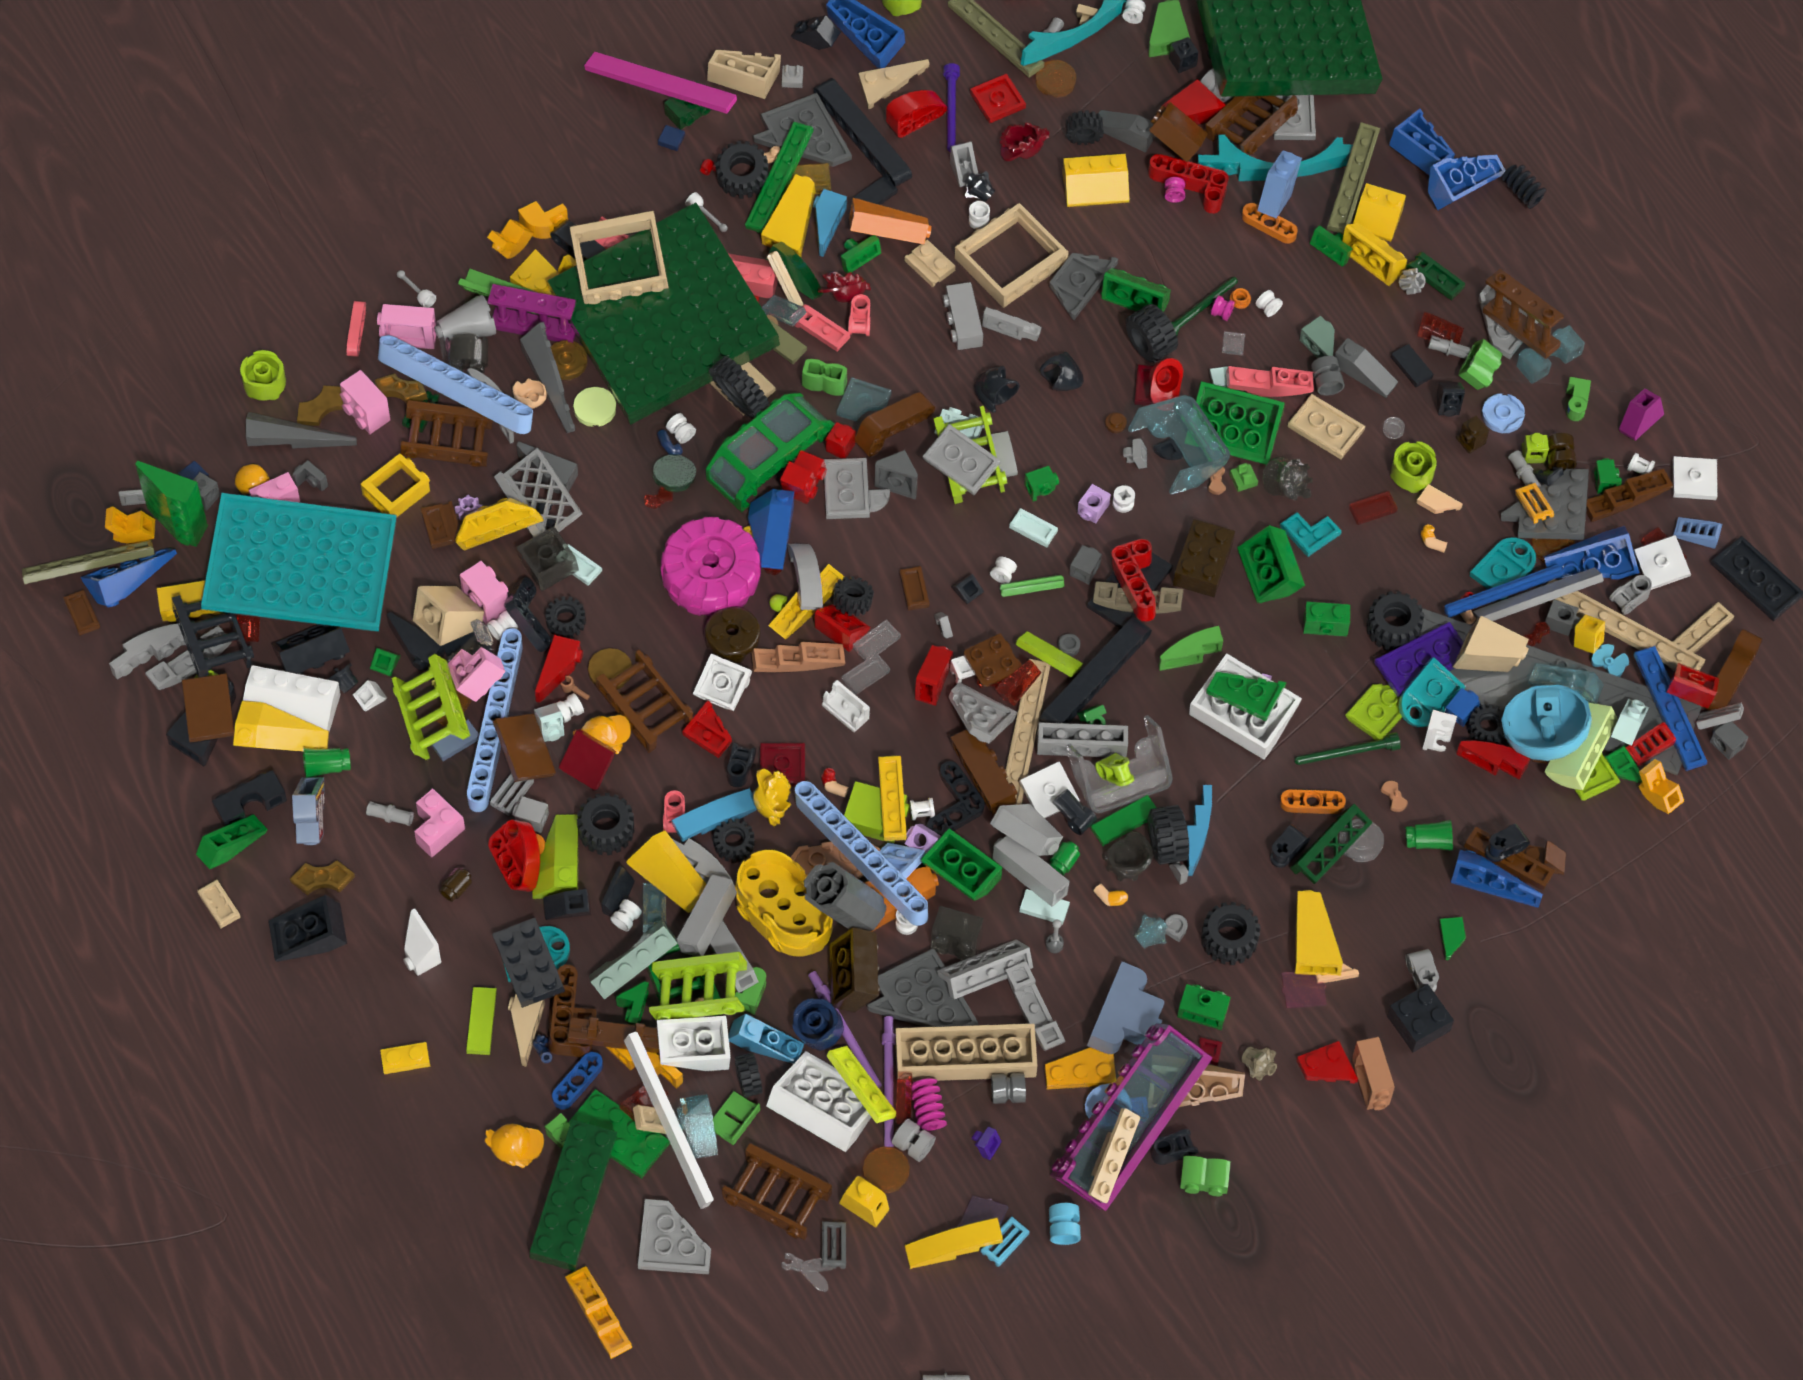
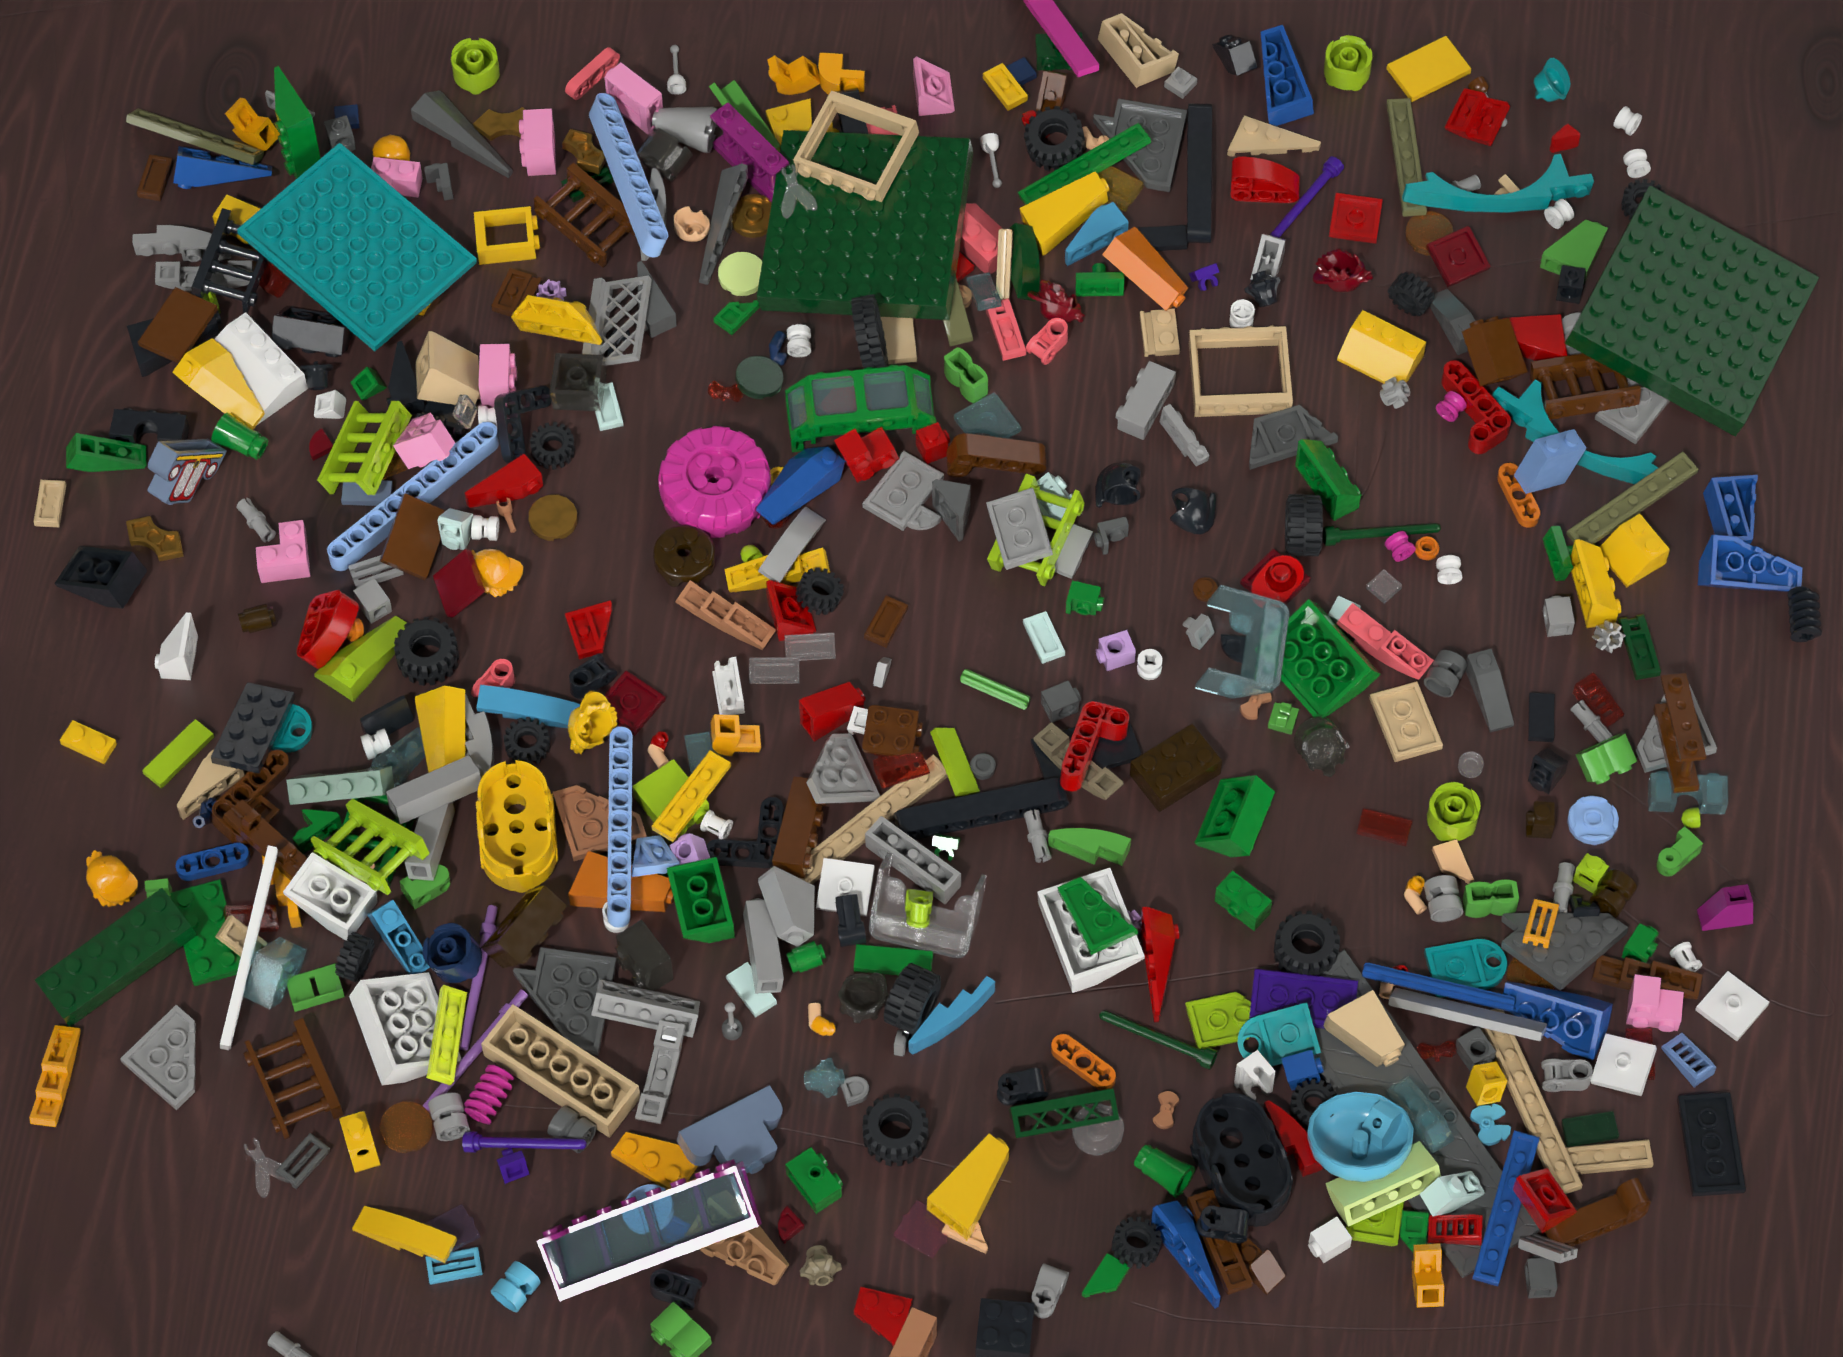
camera: 40 degrees right, 0 degrees up
(388, 728) = (319, 445): none -> dark red tile
(567, 904) = (335, 701): black slope -> none
(597, 319) = (793, 192): none -> clear piece
(615, 440) = (735, 315): none -> green tile
(618, 189) = (932, 88): none -> bright pink slope
(622, 704) = (532, 553): reddish brown fence -> none
(670, 154) = (1005, 86): none -> yellow plate
(710, 138) = (1051, 90): none -> slope
(722, 682) = (637, 592): white slope -> none
(844, 897) = (553, 852): dark grey brick -> none
(863, 767) = (697, 748): none -> clear light blue tile
(881, 736) = (732, 737): none -> light orange brick
(904, 1097) = (469, 1071): clear red tile -> none
(927, 201) = (1203, 274): none -> dark purple tile
(947, 1144) = (473, 1142): none -> dark purple piece
(967, 588) = (934, 654): black slope -> none
(1003, 570) = (979, 657): white wheel -> none
(1018, 424) = (1110, 530): none -> dark grey bracket
(1090, 82) = (1458, 256): none -> dark red tile
(1112, 1155) = (600, 1253): tan bracket -> none
(1130, 203) = (1395, 393): none -> light grey gear
(1149, 667) = (1037, 836): none -> light grey pin
(1310, 538) = (1297, 816): teal tile -> none
(1311, 704) = (1158, 943): none -> red wedge
(1318, 337) = (1470, 632): sand green slope -> none
(1367, 288) = (1558, 616): none -> light grey brick
(1452, 907) = (1140, 1230): none -> black tyre
(1461, 534) = (1443, 898): none -> light grey wheel
(1468, 768) = (1256, 1132): none -> black piece
(1487, 508) = (1487, 898): none -> bright green brick
(1566, 369) = (1691, 818): none -> lime hinge
(1576, 808) = (1329, 1240): none -> white brick
(1648, 510) = (1653, 1006): none -> bright pink brick
(1675, 620) = (1590, 1129): none -> clear green plate

